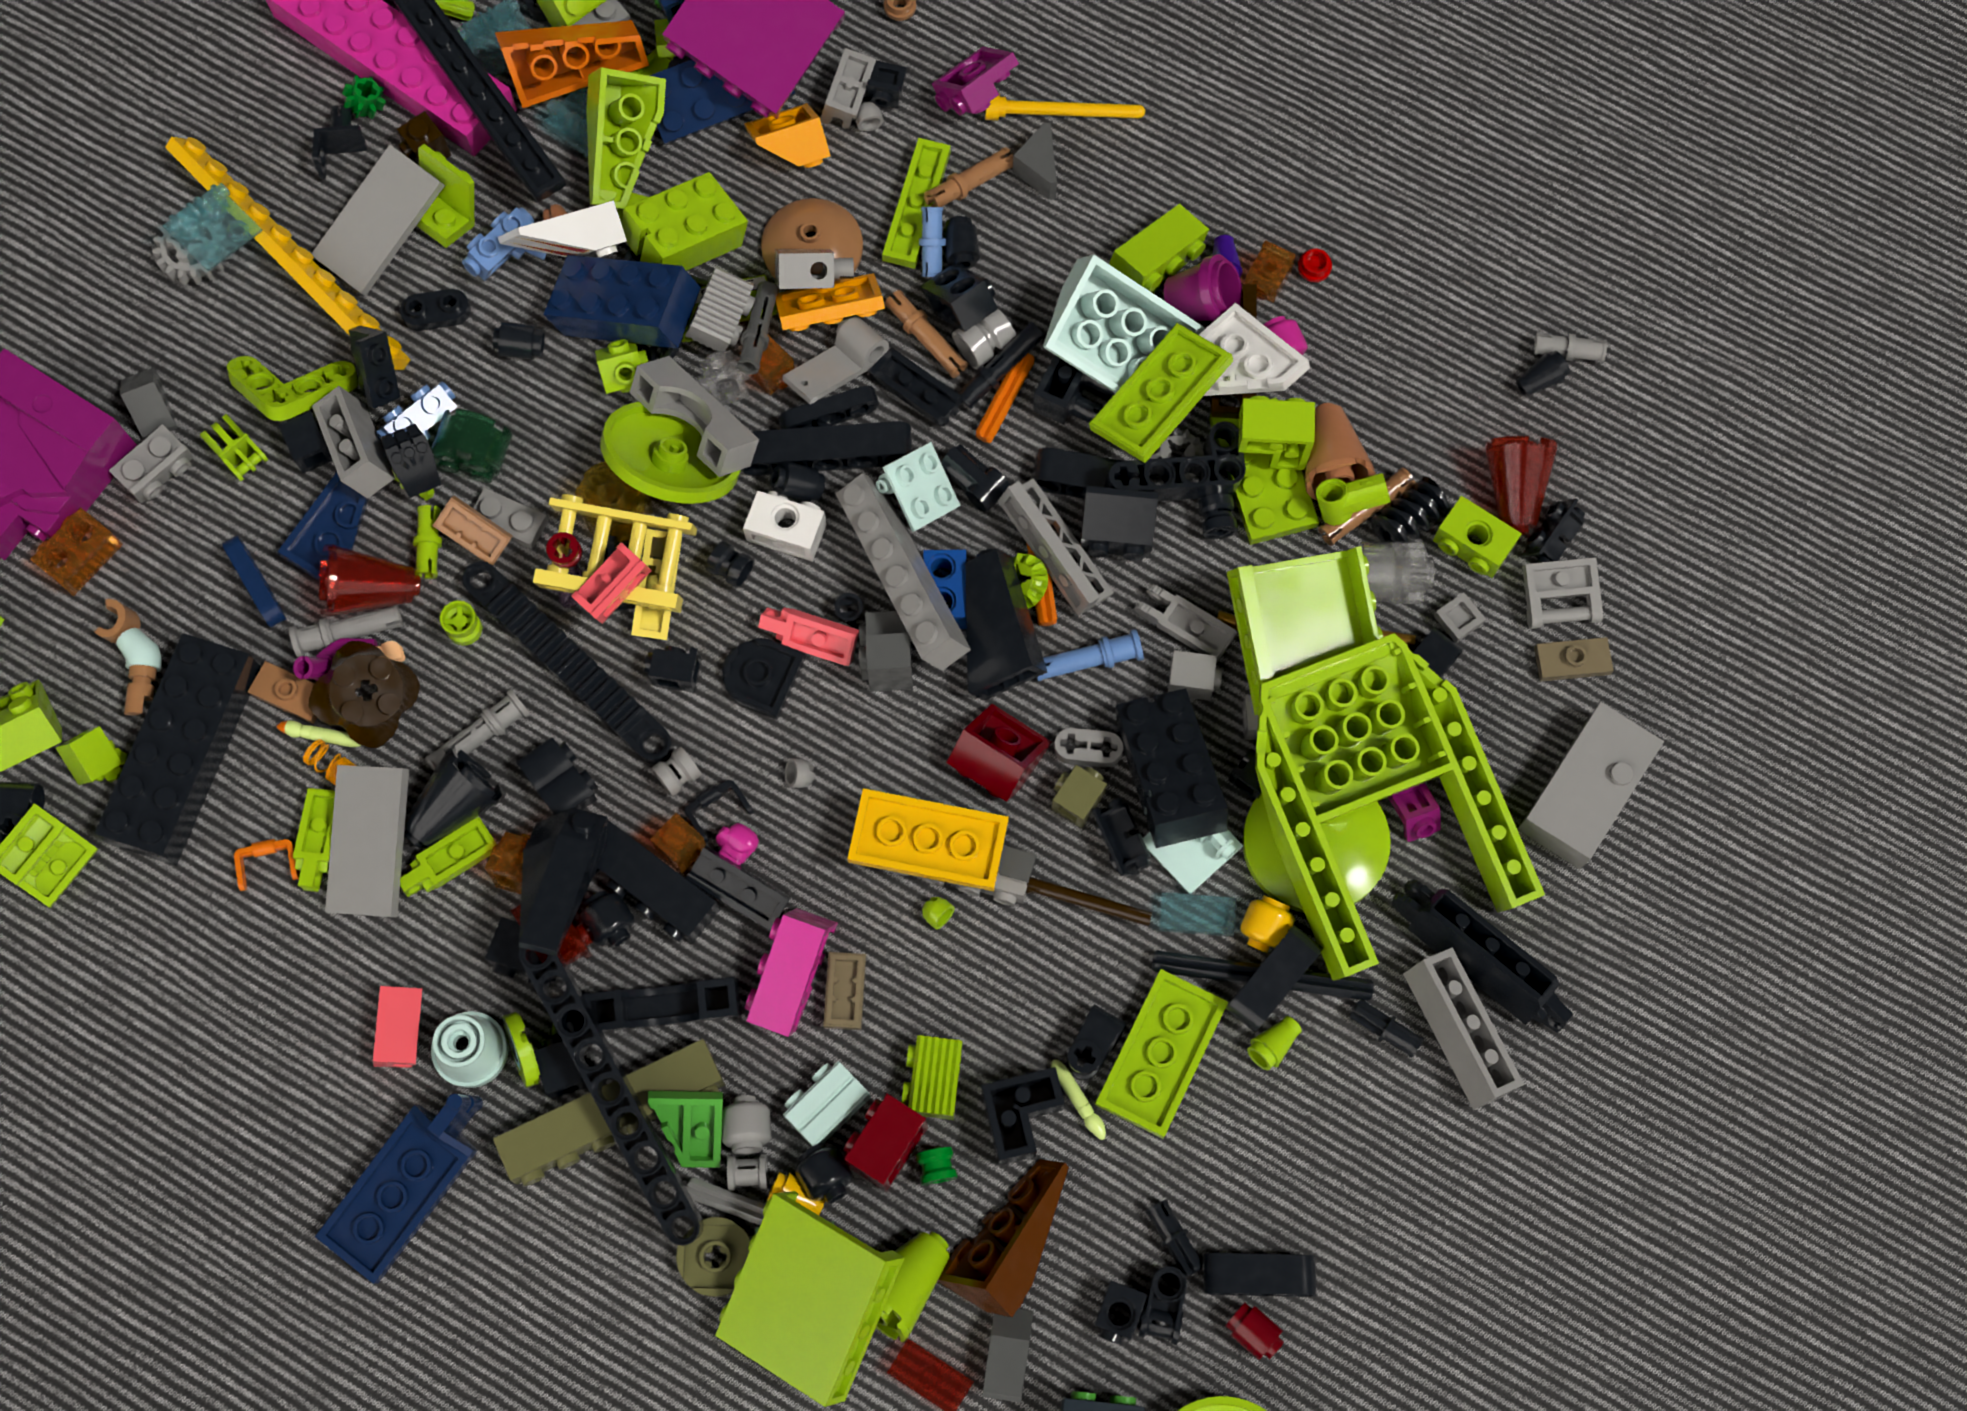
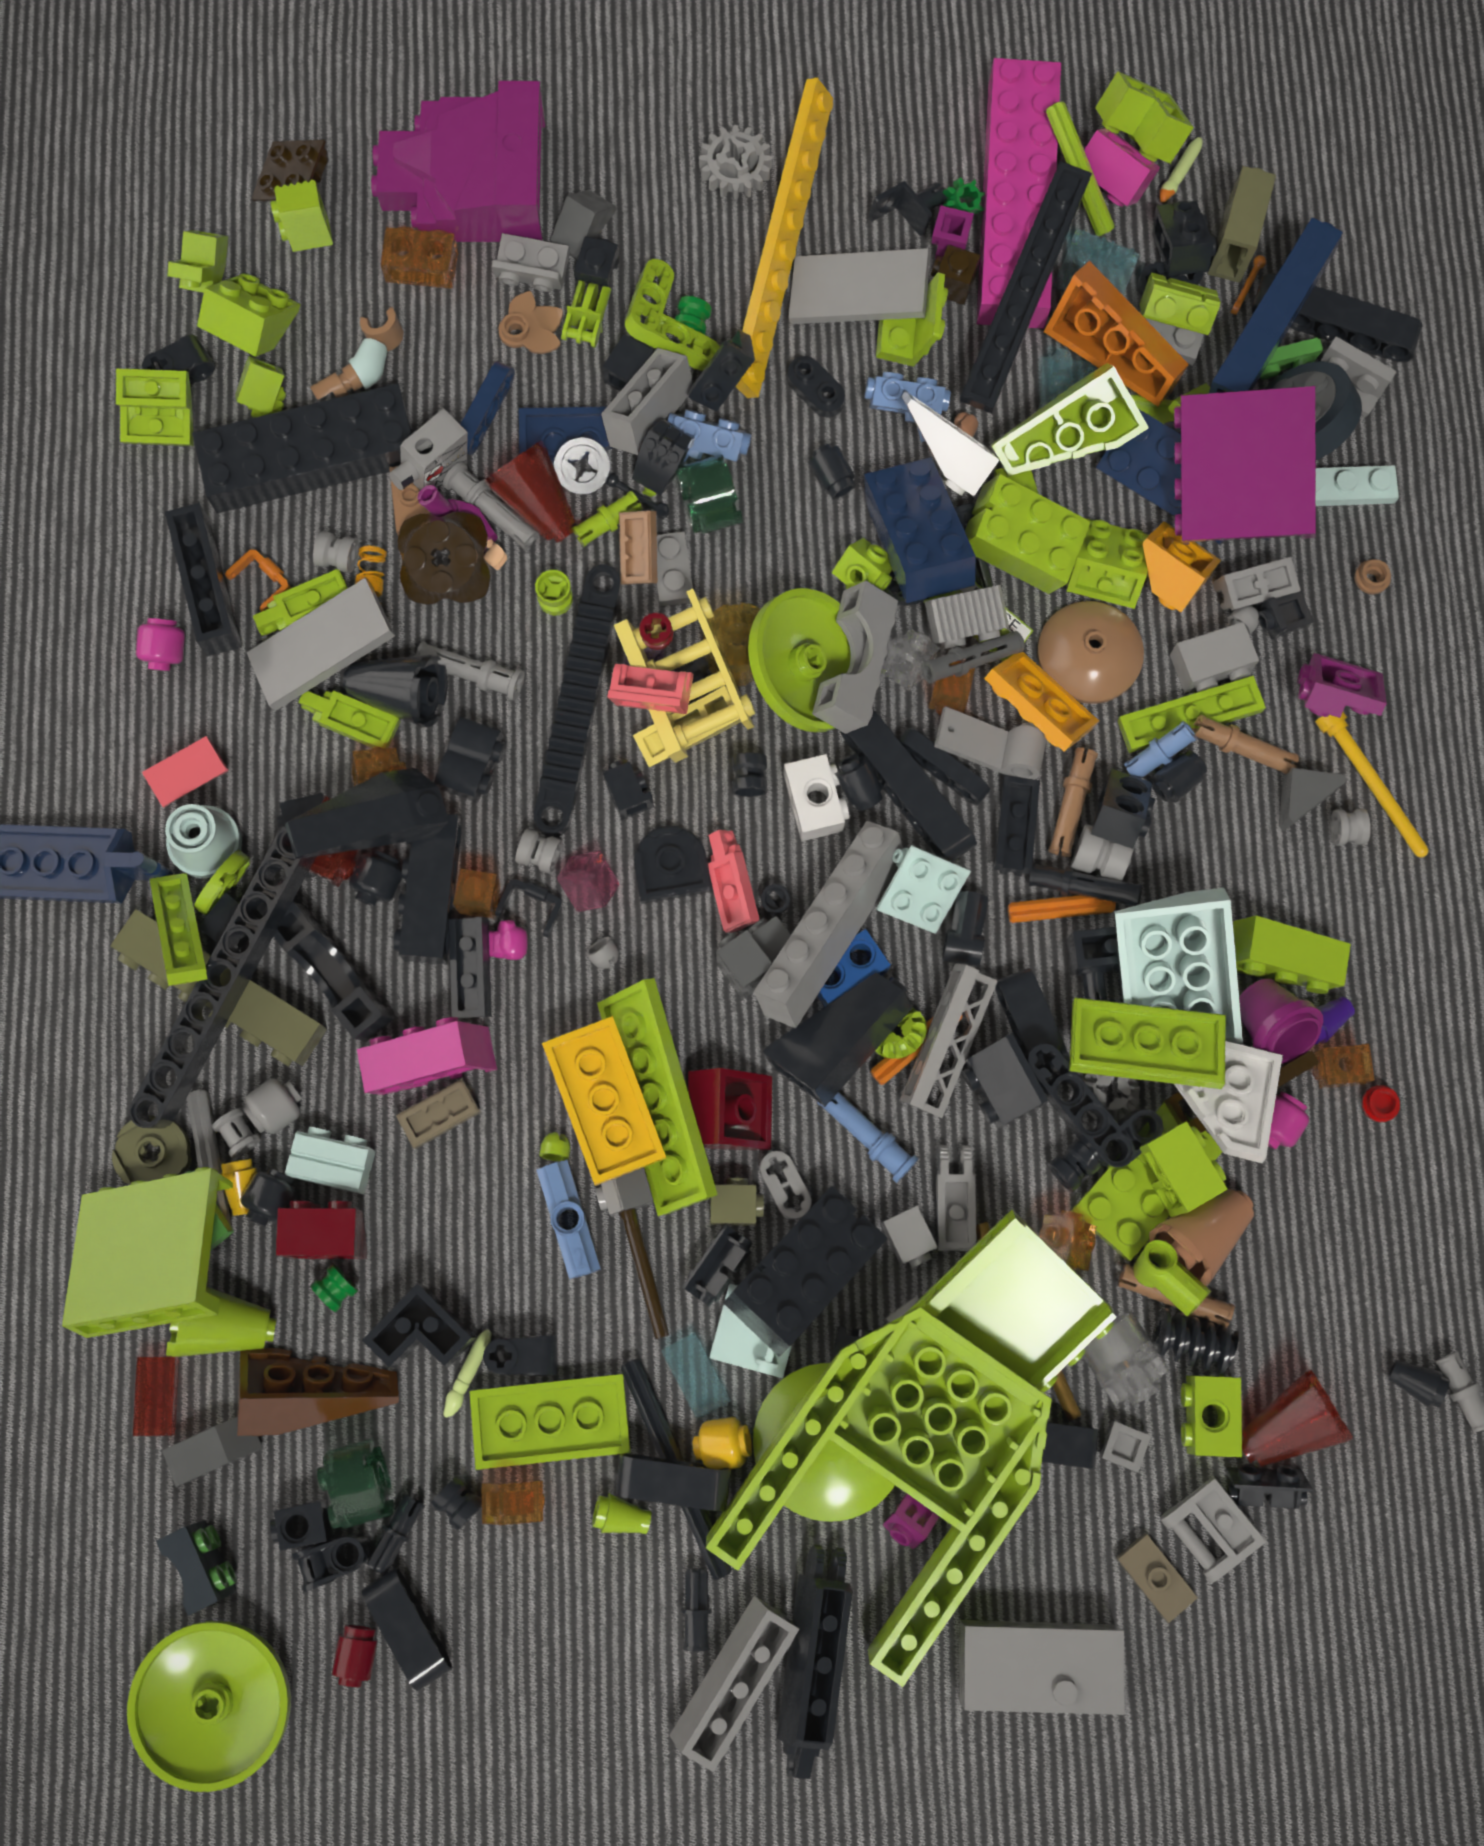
camera: 55 degrees right, 5 degrees up
(195, 409) = (597, 261): none -> black bracket
(207, 495) = (534, 321): none -> medium nougat plate
(212, 227) = (758, 164): clear light blue hinge -> none
(234, 906) = (203, 579): none -> black brick
(264, 980) = (160, 643): none -> dark pink head
(266, 643) = (431, 452): none -> light grey torso
(291, 781) = (335, 551): none -> light grey wheel
(296, 729) = (389, 542): yellowish green piece -> none
(299, 361) = (694, 313): none -> green wheel
(368, 515) = (589, 480): none -> gear
(384, 118) = (951, 228): none -> magenta brick
(396, 519) = (661, 509): none -> black hinge
(539, 1106) = (178, 929): none -> lime plate
(691, 1124) = (243, 1061): bright green wing -> none
(730, 747) = (588, 881): none -> clear pink panel
(755, 181) = (1110, 564): none -> lime bracket
(794, 268) = (1044, 656): light grey torso -> none
(884, 157) = (1214, 658): none -> light grey brick
(933, 1077) = (408, 1237): lime brick -> none
(980, 930) = (561, 1195): none -> medium blue piece
(1031, 811) = (645, 1033): none -> lime plate
(1086, 147) = (1350, 827): none -> light grey wheel
(1115, 1239) = (356, 1484): none -> clear green brick
(1184, 1169) = (457, 1503): none -> black wheel
(1210, 1121) = (512, 1502): none -> clear orange brick
(1272, 548) = (1070, 1238): none -> clear orange brick

